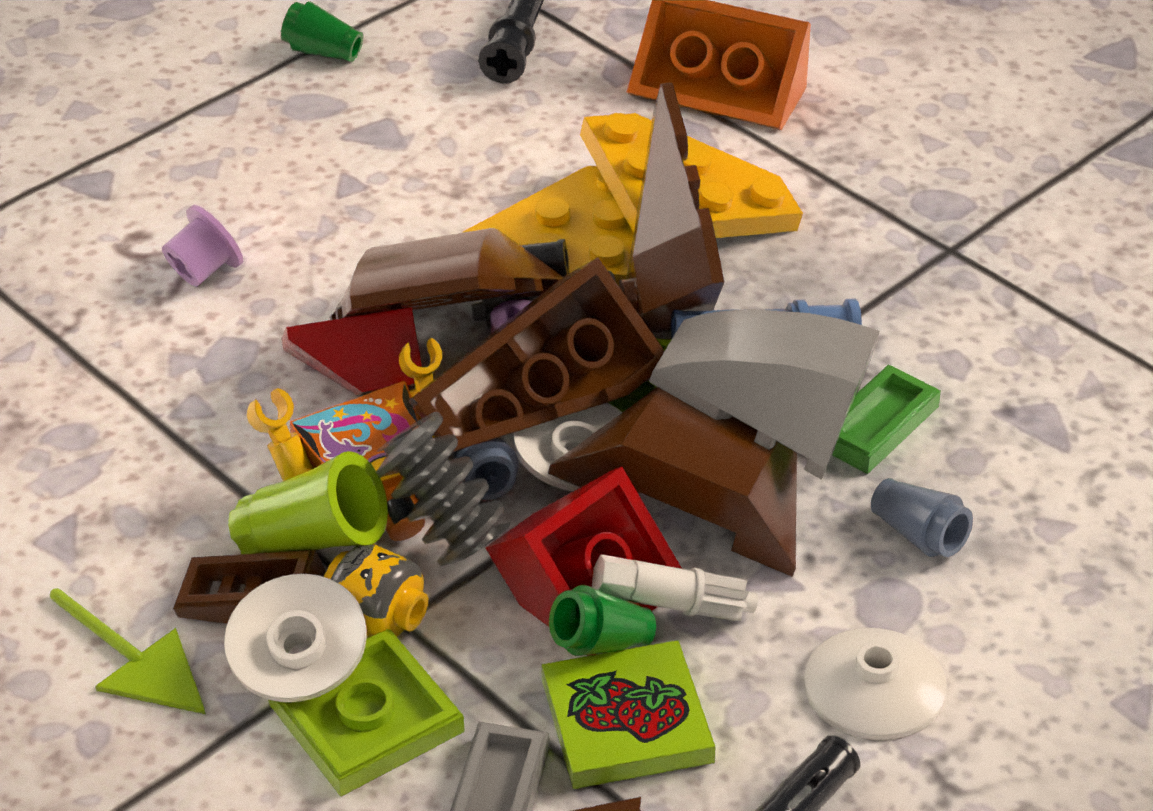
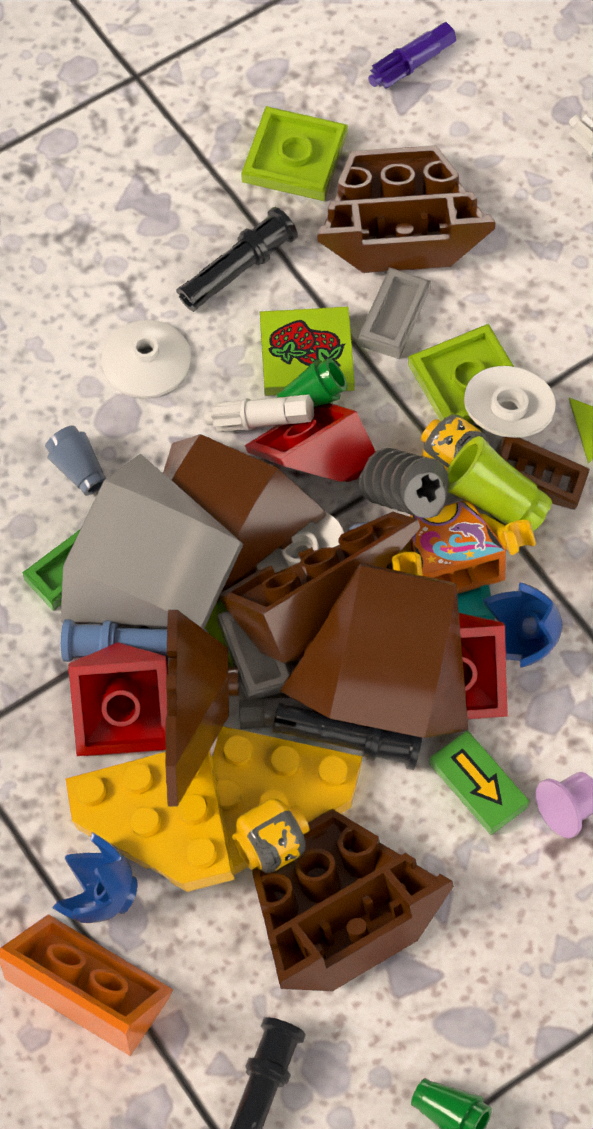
camera: 170 degrees left, 20 degrees up
(243, 377) = (530, 623): none -> blue piece
(305, 269) = (479, 782): none -> bright green tile
(467, 142) = (344, 905): none -> reddish brown wedge
(546, 155) = (270, 835): none -> yellow head
(722, 128) = (105, 882): none -> blue piece
(768, 270) = (119, 701): none -> red slope

